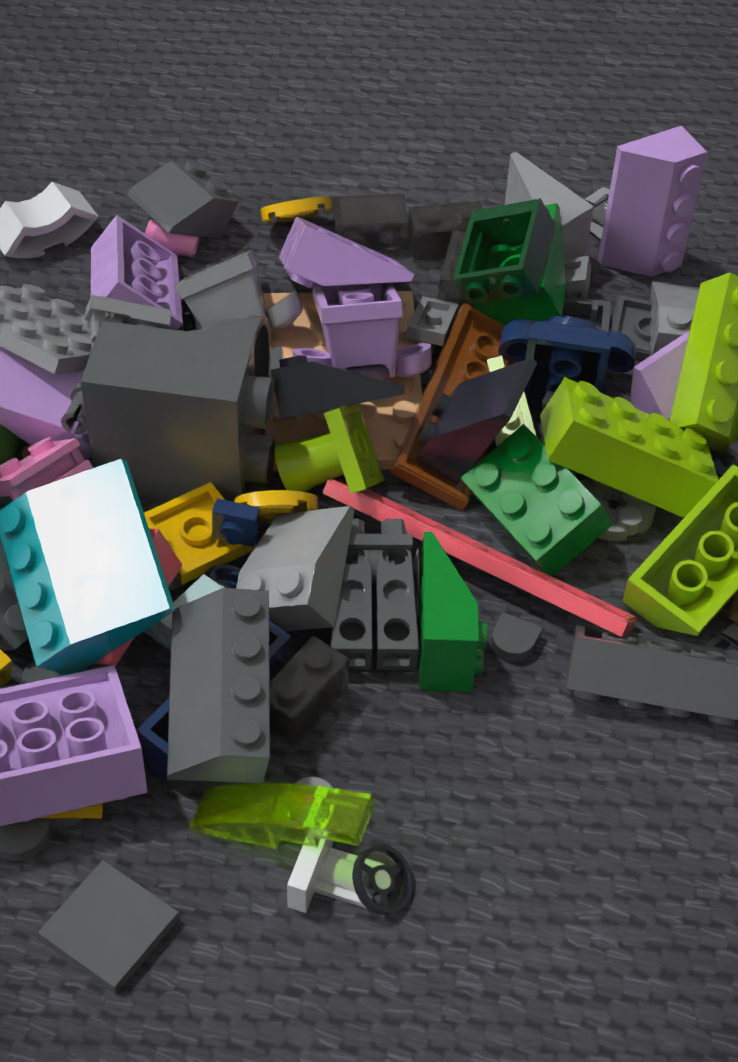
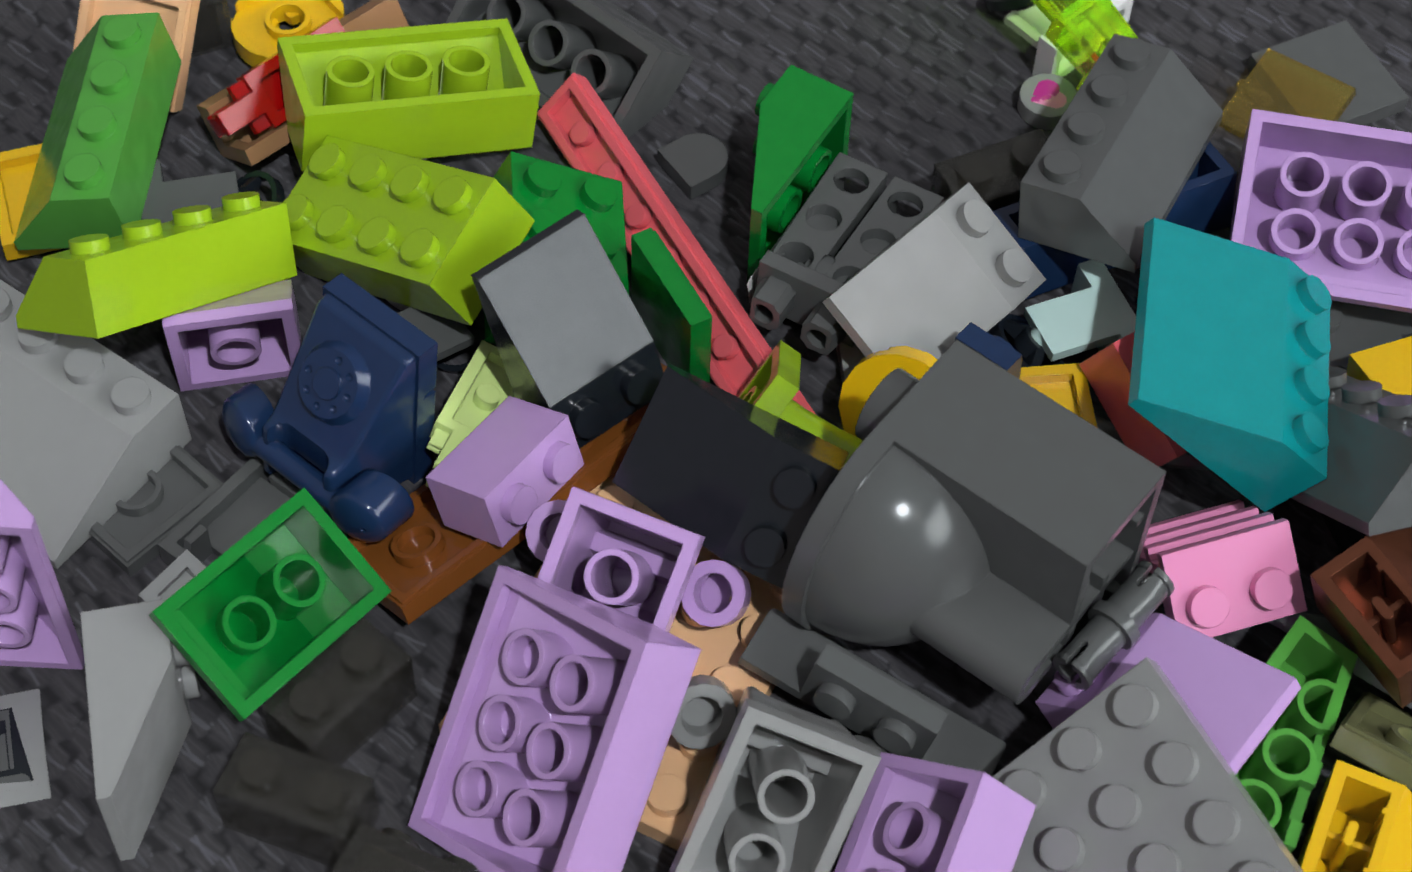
camera: 150 degrees left, 5 degrees up
(125, 312) = (976, 738): light grey hinge -> none
(130, 870) = (1286, 88): none -> clear yellow piece
(432, 321) = (446, 632): light grey hinge -> none
(446, 495) = (670, 306): none -> green tile
(460, 355) = (505, 470): none -> lavender brick
(486, 229) = (260, 610): dark green window -> none

